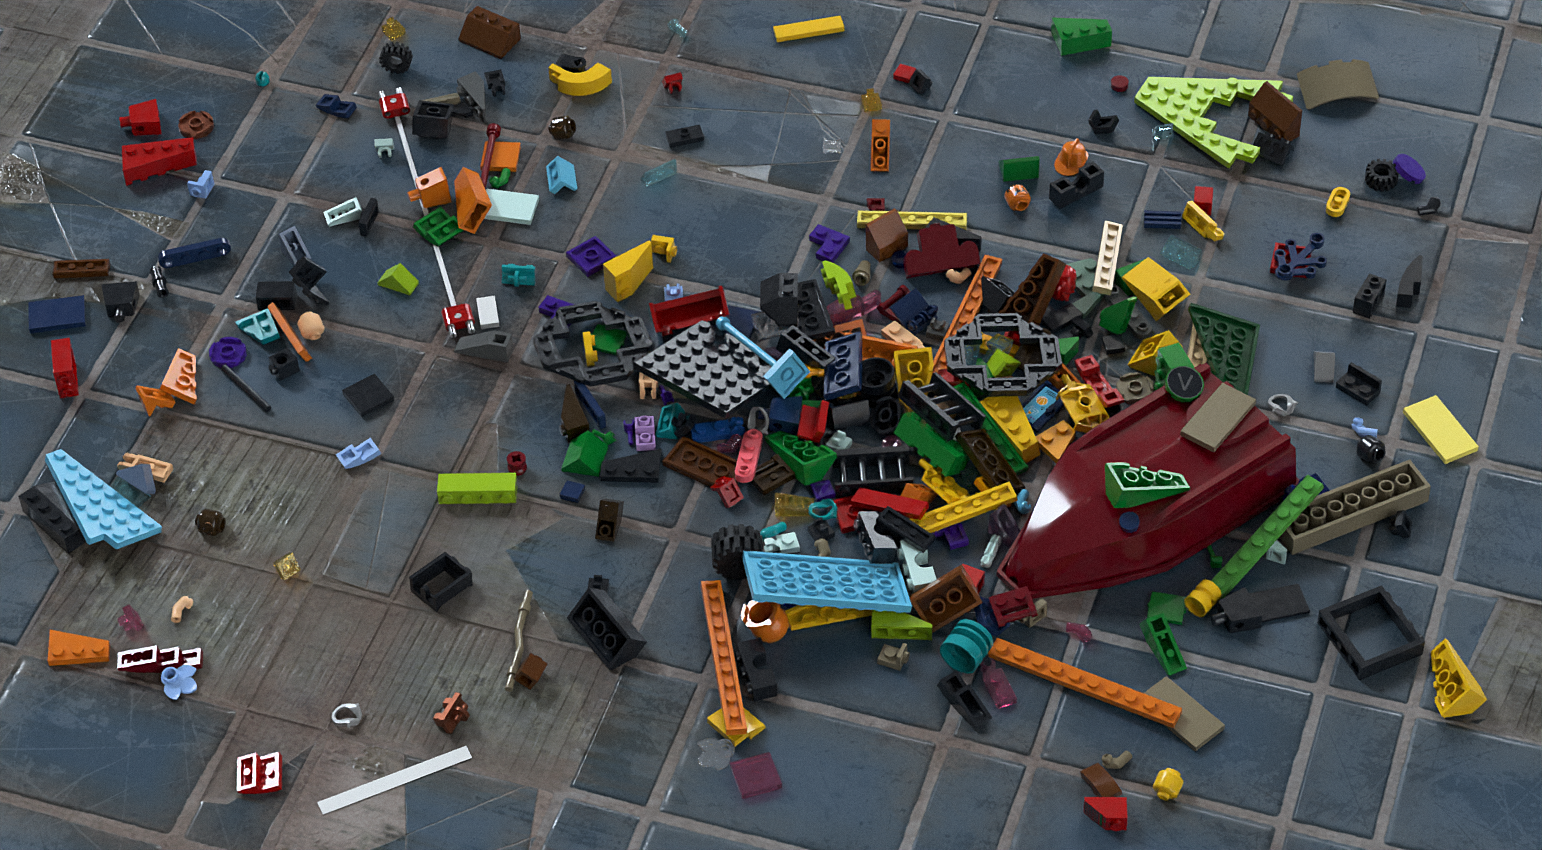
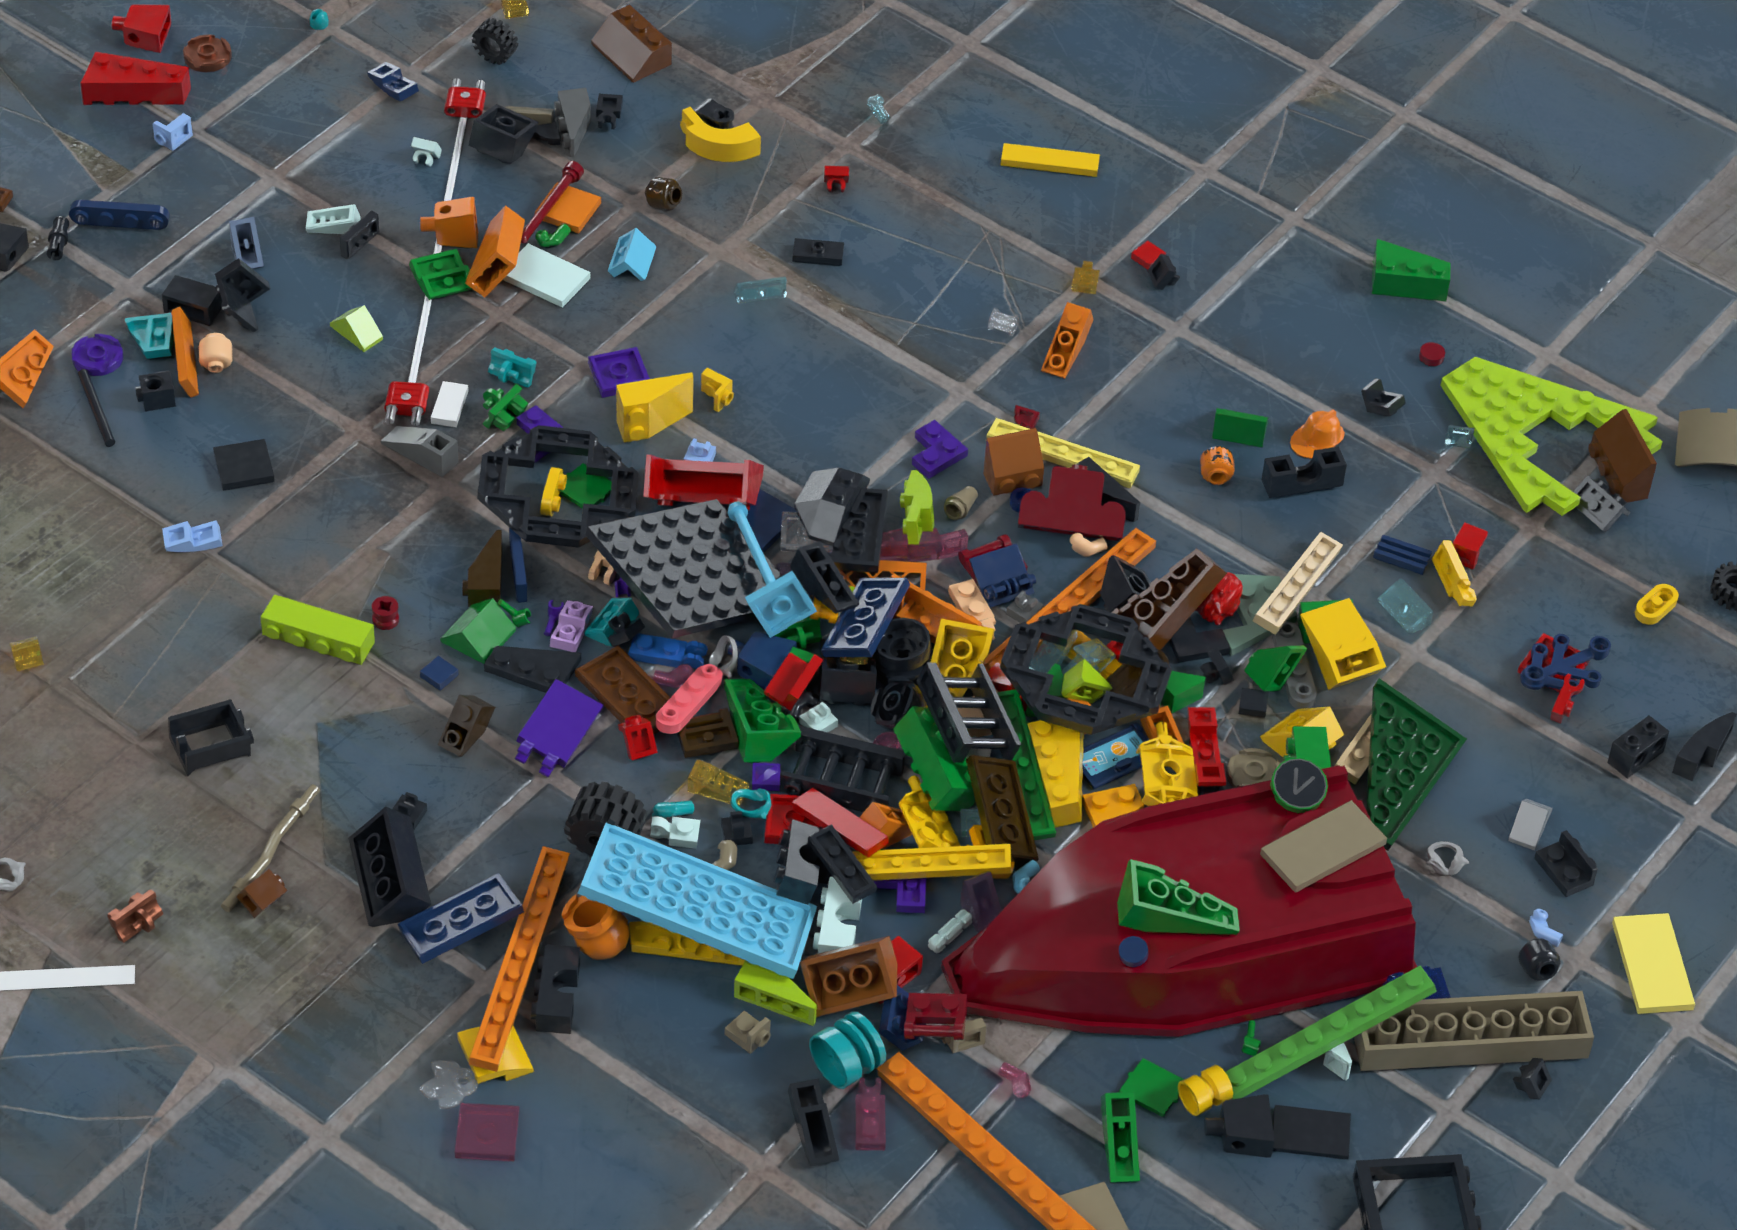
camera: 15 degrees right, 0 degrees up
(531, 297) = (499, 405): none -> green hips
(670, 501) = (557, 726): none -> dark purple tile
(670, 644) = (460, 918): none -> dark blue tile
(1310, 283) = (1563, 704): none -> red plate

